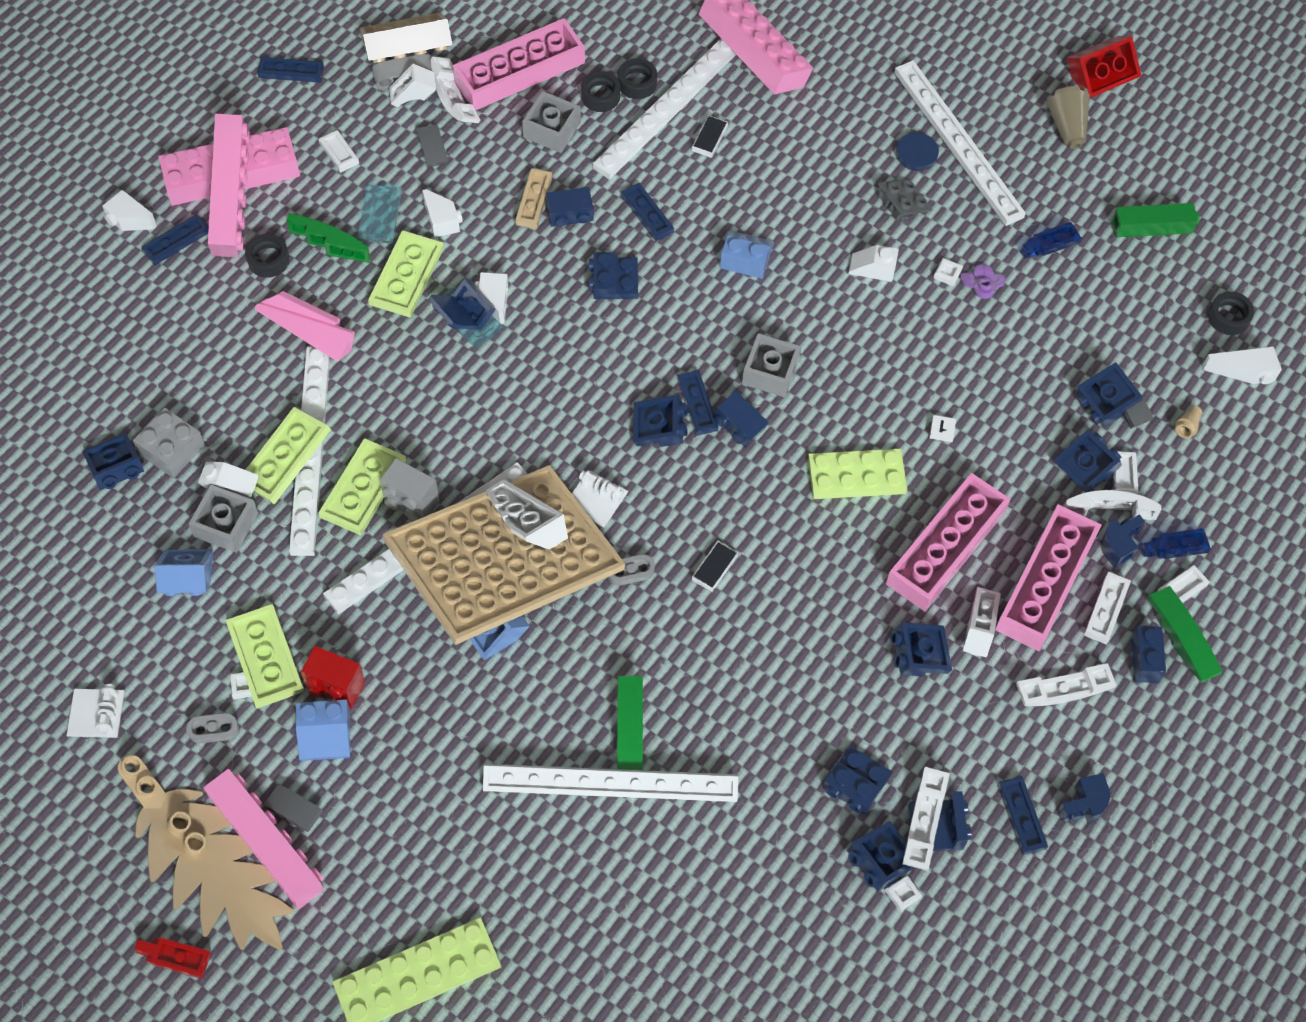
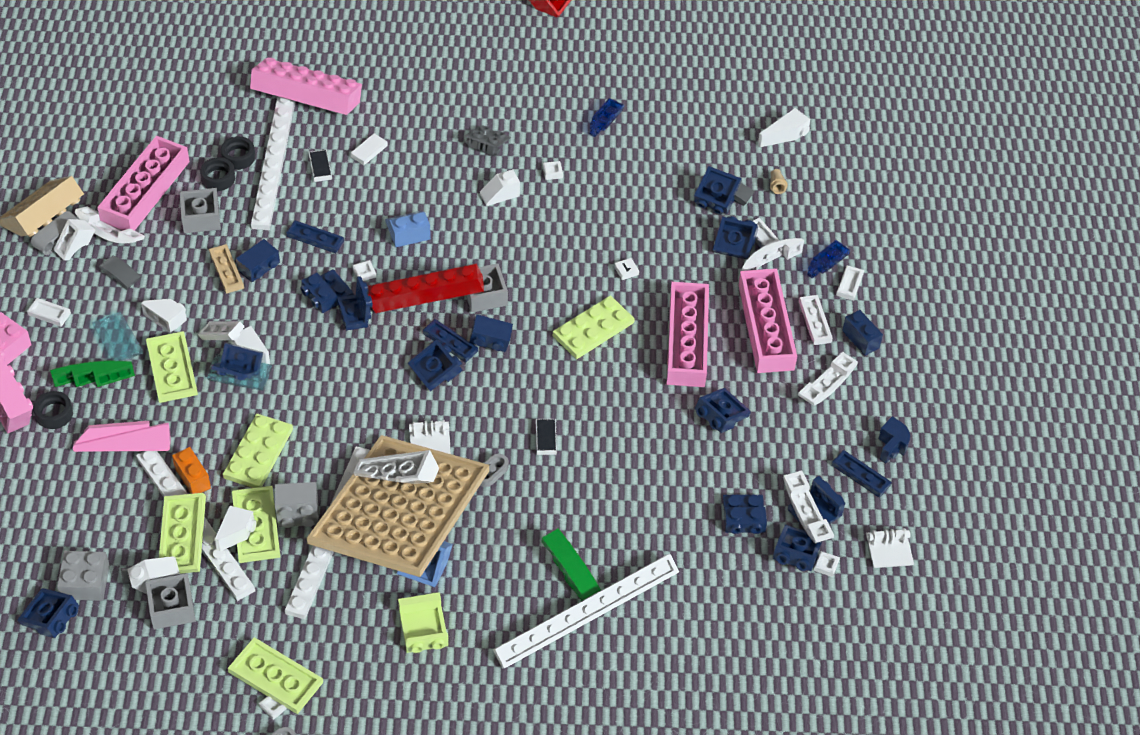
camera: 35 degrees left, 10 degrees down
(184, 571) = (168, 655): medium blue slope -> none
(323, 730) = (360, 697): medium blue slope -> none
(332, 676) = (342, 656): red brick -> none
(333, 479) = (235, 527): none -> white slope
(342, 395) = (191, 471): none -> orange brick
(422, 411) = (258, 451): none -> yellowish green plate
(441, 692) = (423, 622): none -> yellowish green panel
(474, 263) = (221, 330): none -> white plate
(624, 313) = (356, 308): none -> dark blue bracket
(668, 276) = (364, 270): none -> white tile
(706, 332) = (426, 288): none -> red brick
(772, 144) = (369, 149): none -> white tile
(917, 151) = (472, 105): dark blue tile -> none
(960, 143) = (496, 85): white plate -> none
(982, 622) = (748, 372): white slope -> none
(983, 281) = (580, 164): medium lavender plate -> none
(986, 921) = (890, 548): none -> white hinge
(1070, 113) = (557, 31): dark tan cone -> none
(1117, 541) = (791, 277): dark blue brick -> none
(1155, 220) = (660, 70): green brick -> none
(1186, 634) = (875, 307): green slope -> none
(1235, 300) = (754, 94): black tyre -> none

